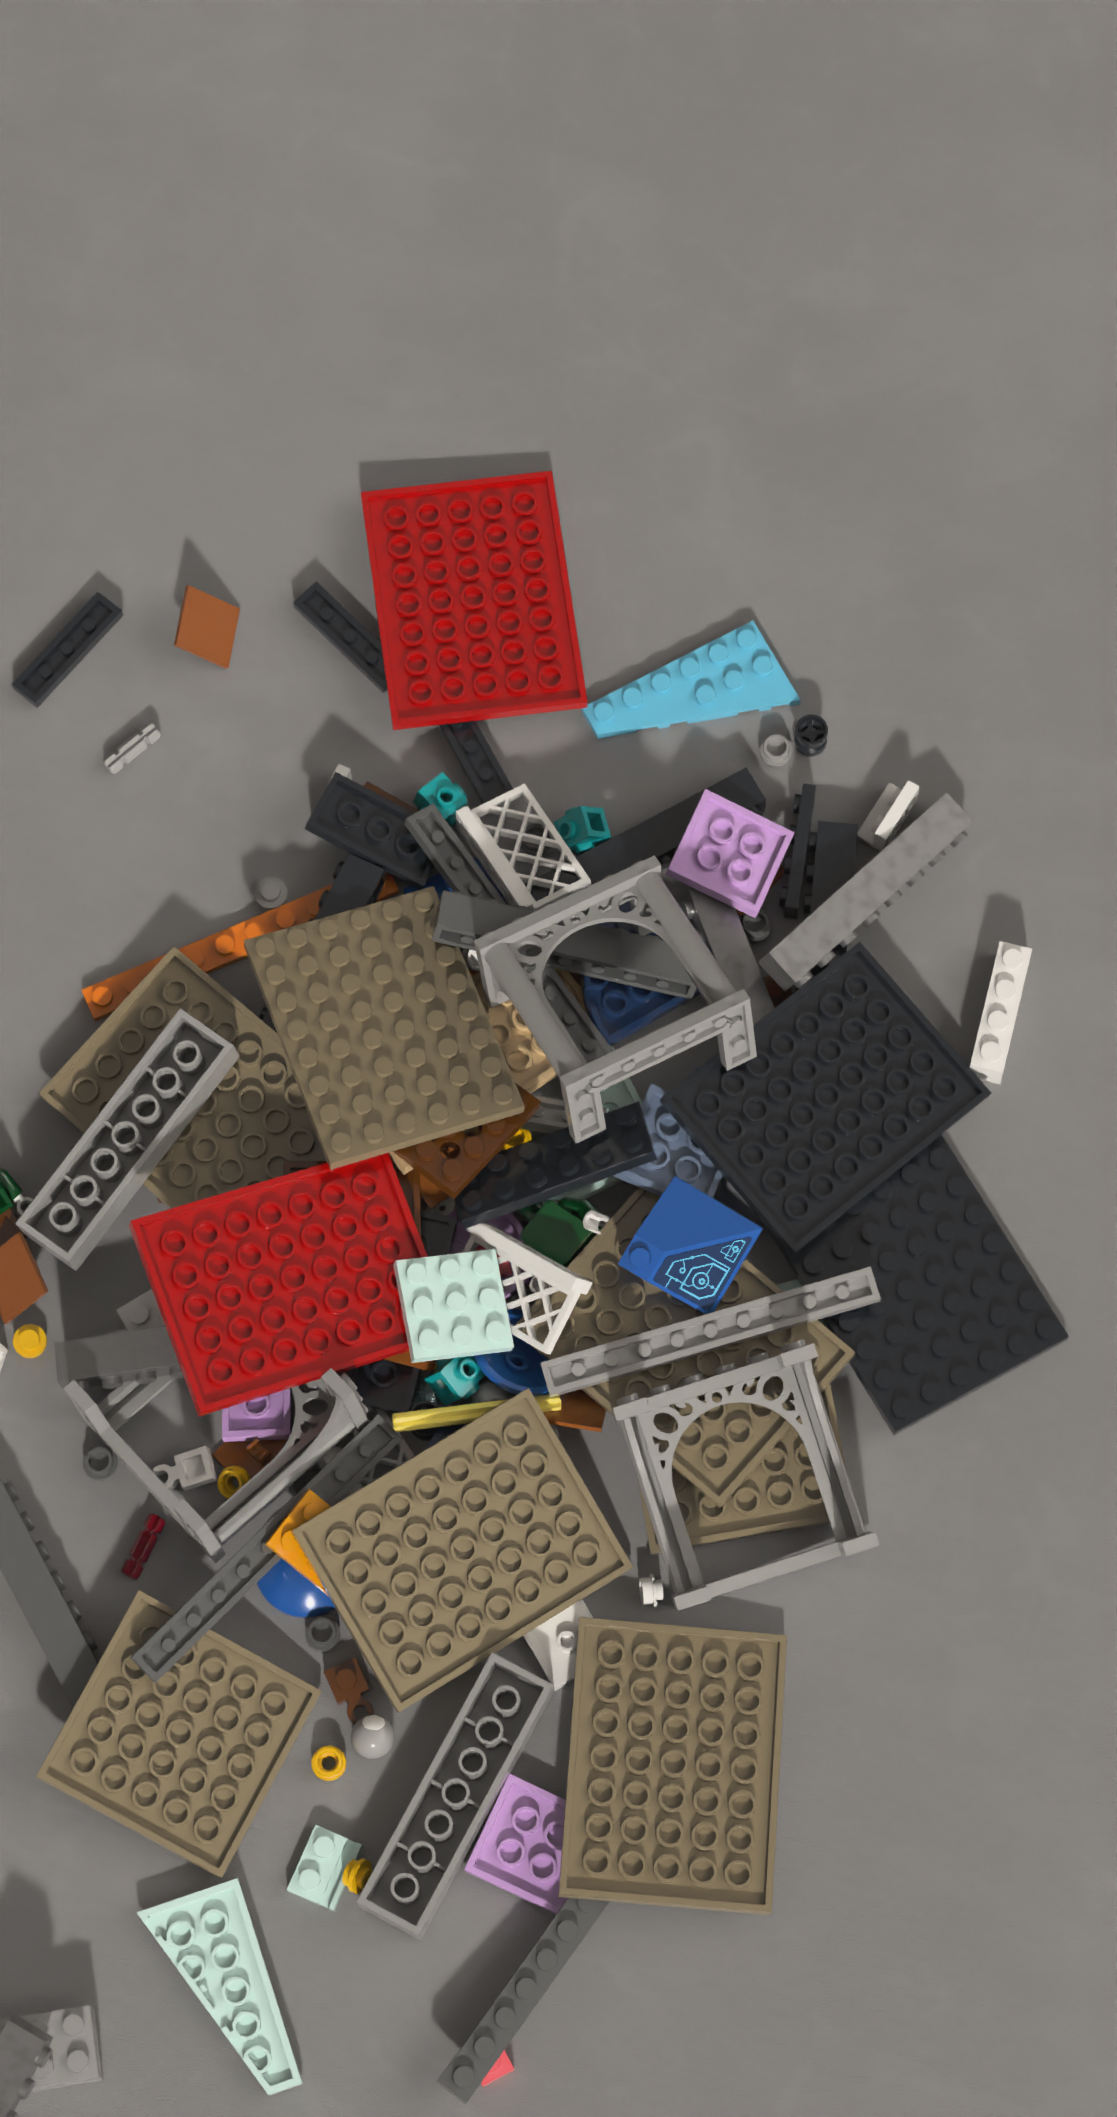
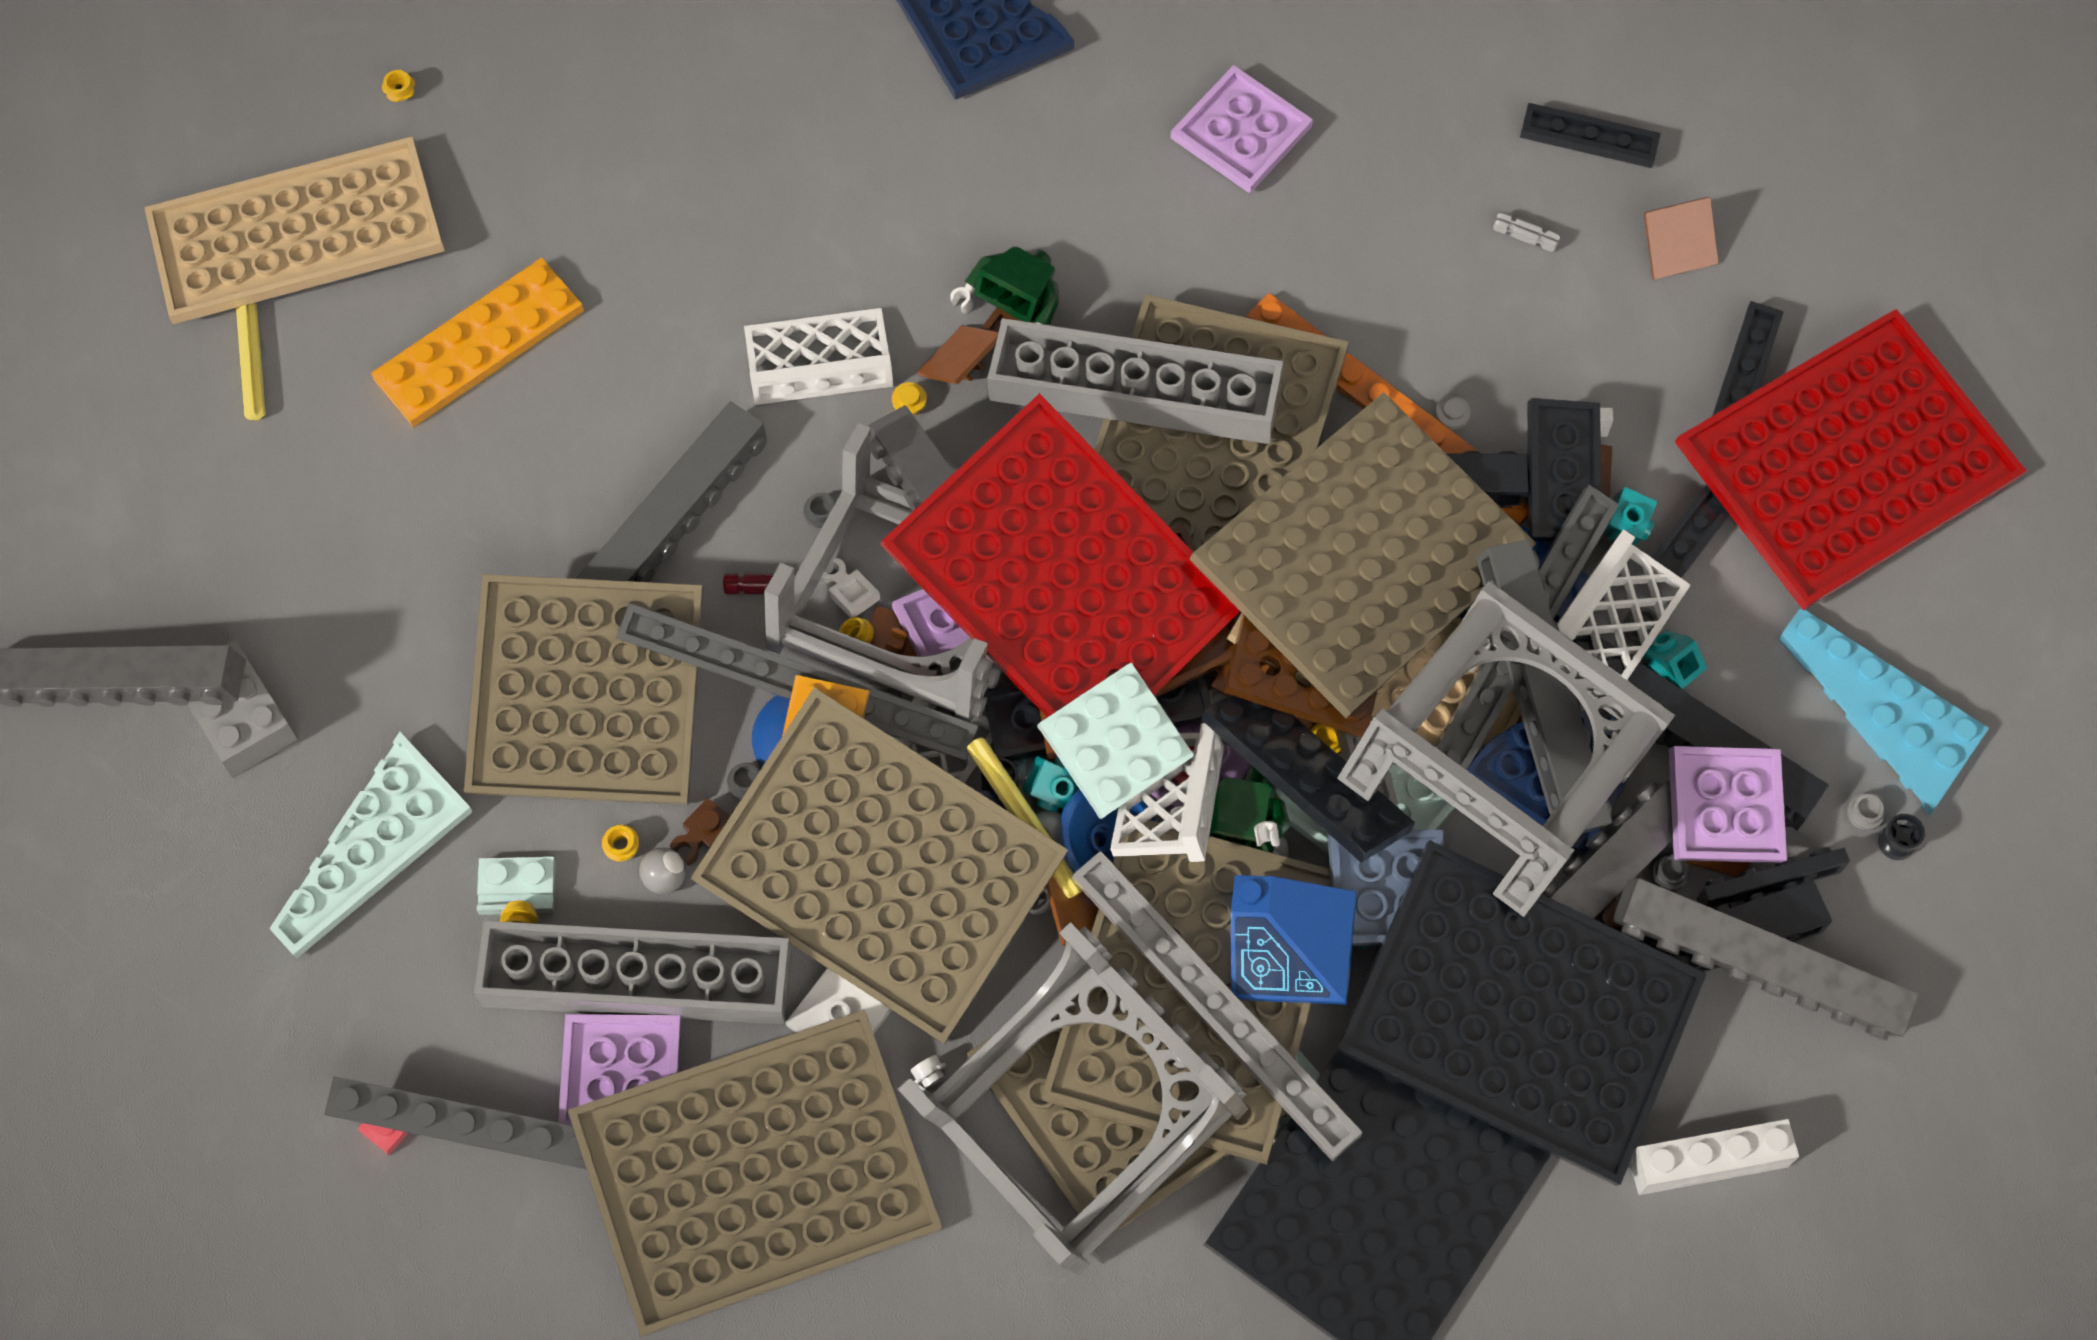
camera: 60 degrees right, 5 degrees down
(888, 815) = (1864, 950): white bracket -> none

